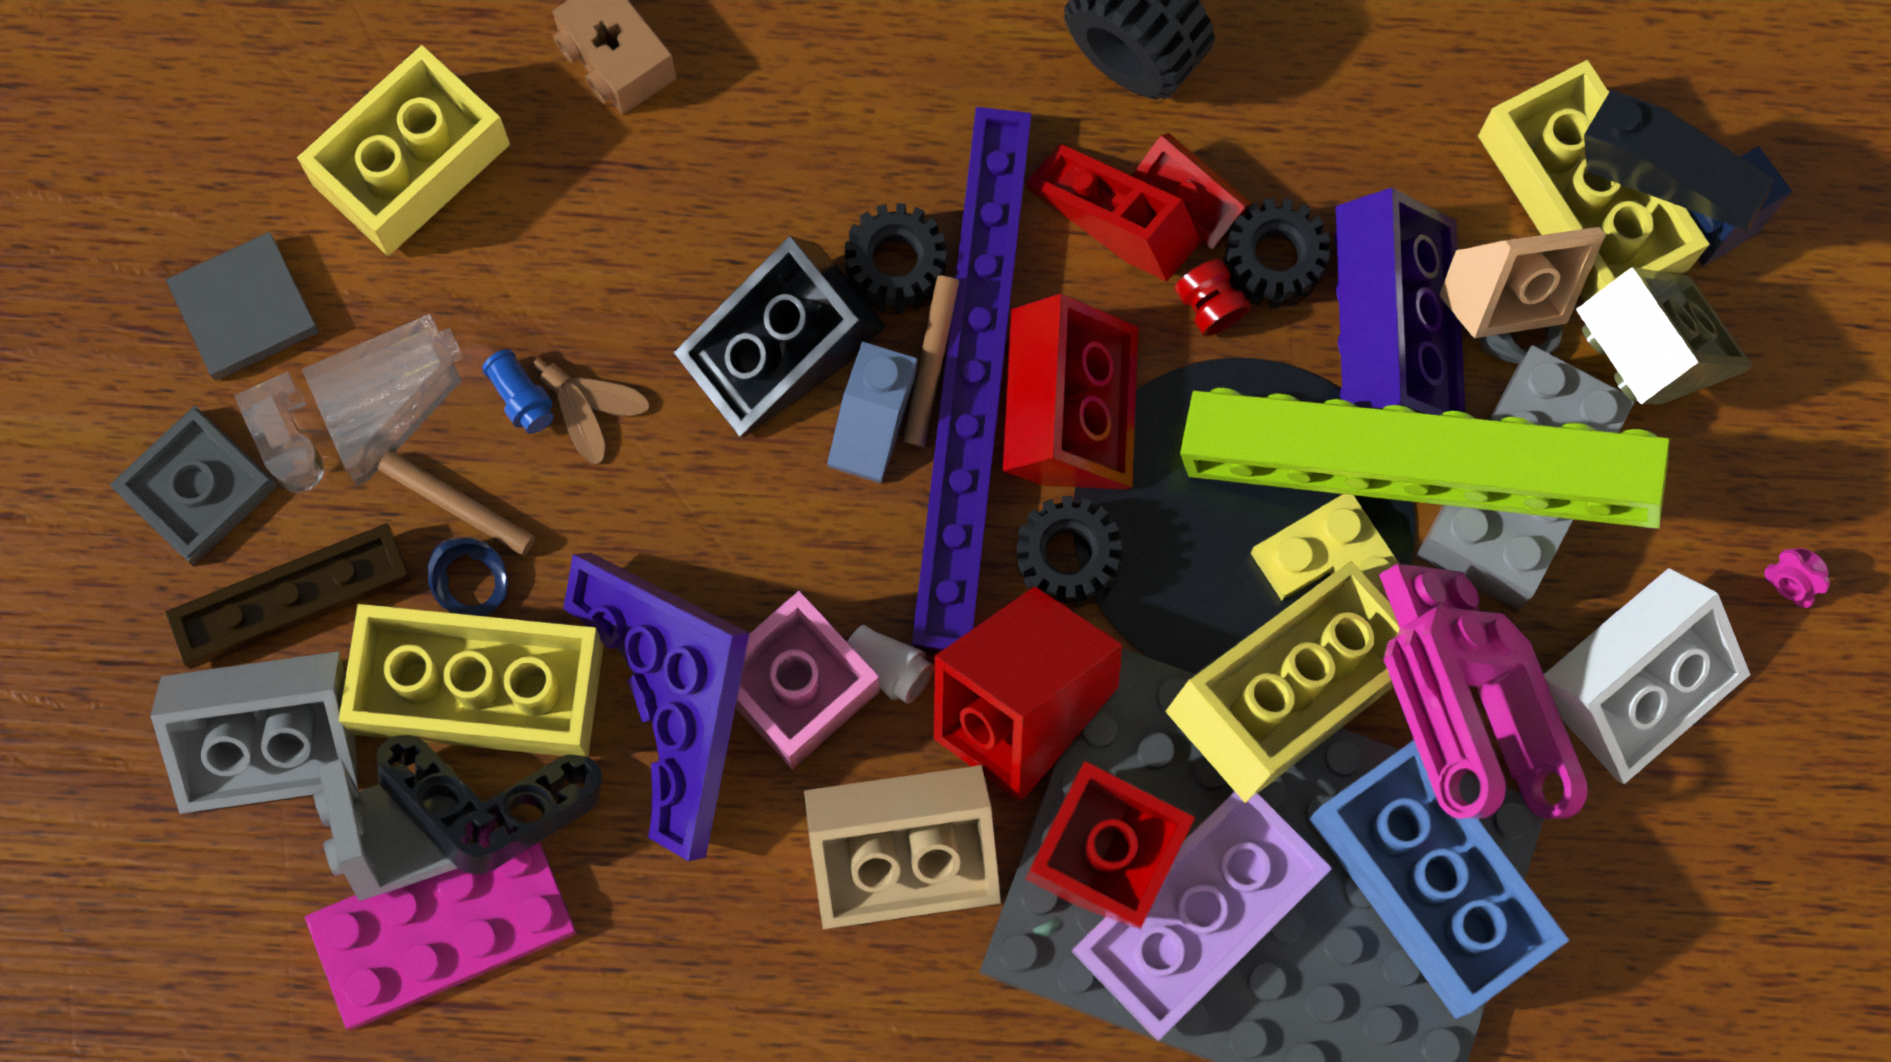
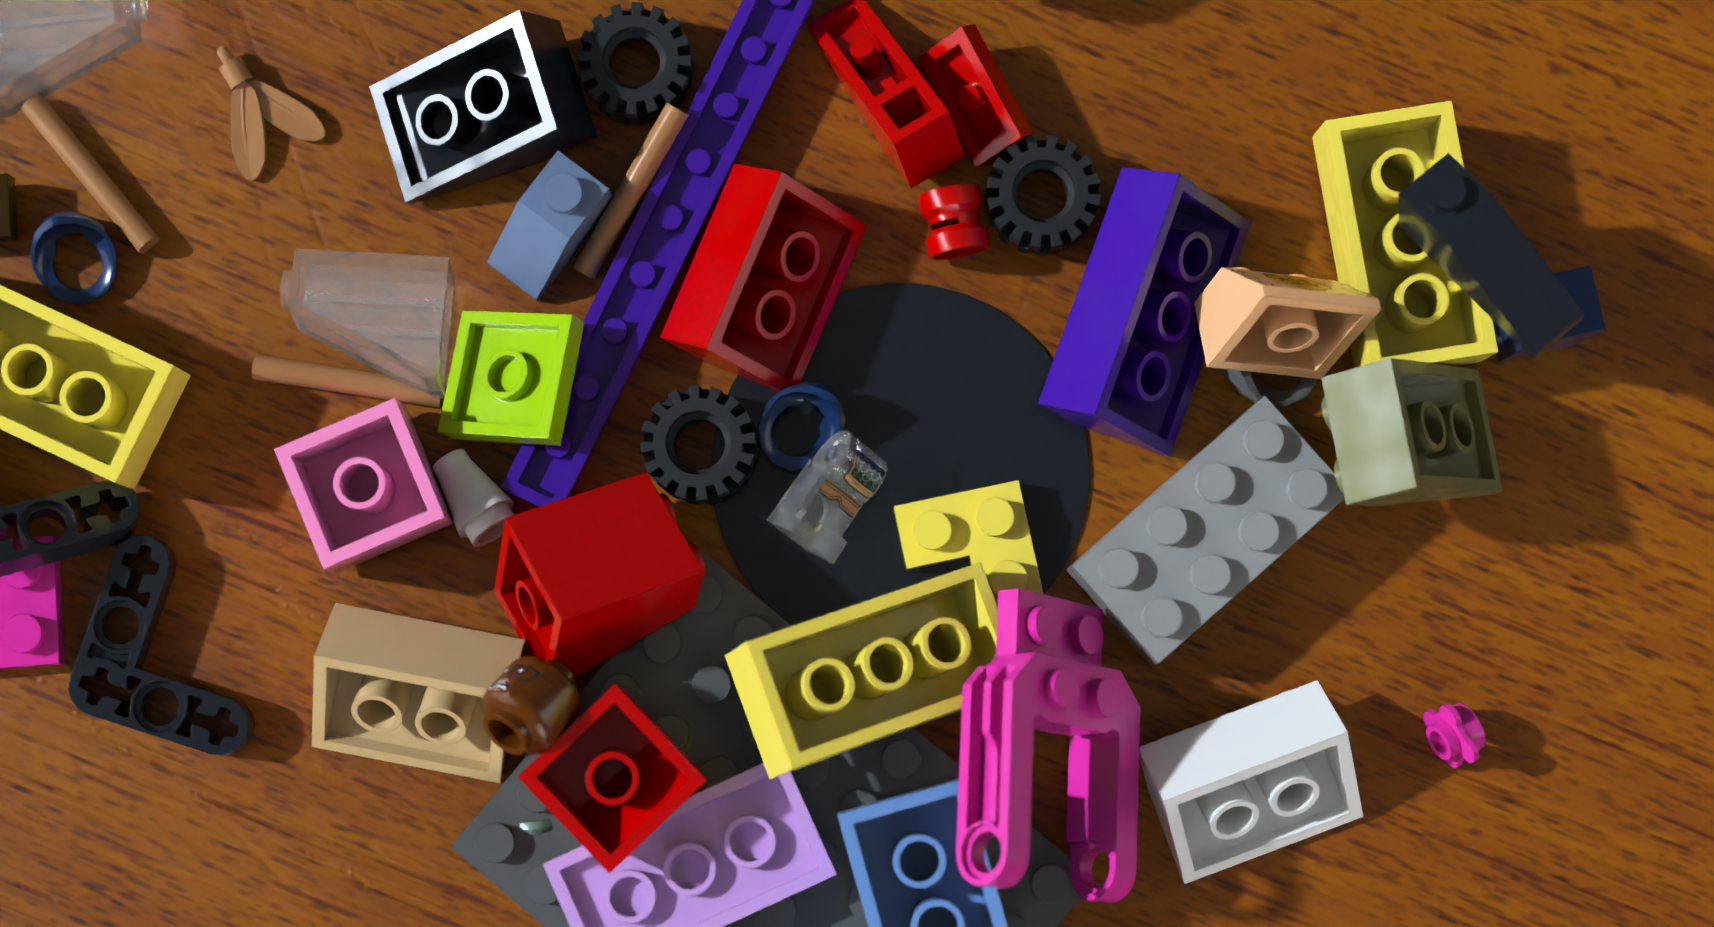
camera: 15 degrees right, 10 degrees up
(525, 403) = (194, 90): blue animal -> none
(632, 907) = (127, 660): none -> black beam
(682, 681) = (242, 451): dark purple plate -> none
(750, 531) = (378, 310): none -> clear slope
(764, 598) = (337, 380): none -> medium nougat bar
(888, 547) = (511, 377): none -> lime plate
(1016, 807) = (530, 705): none -> reddish brown head
(1167, 483) = (816, 393): none -> dark blue piece
(1196, 556) = (829, 495): none -> clear leg
(1427, 457) = (1099, 483): lime brick -> none

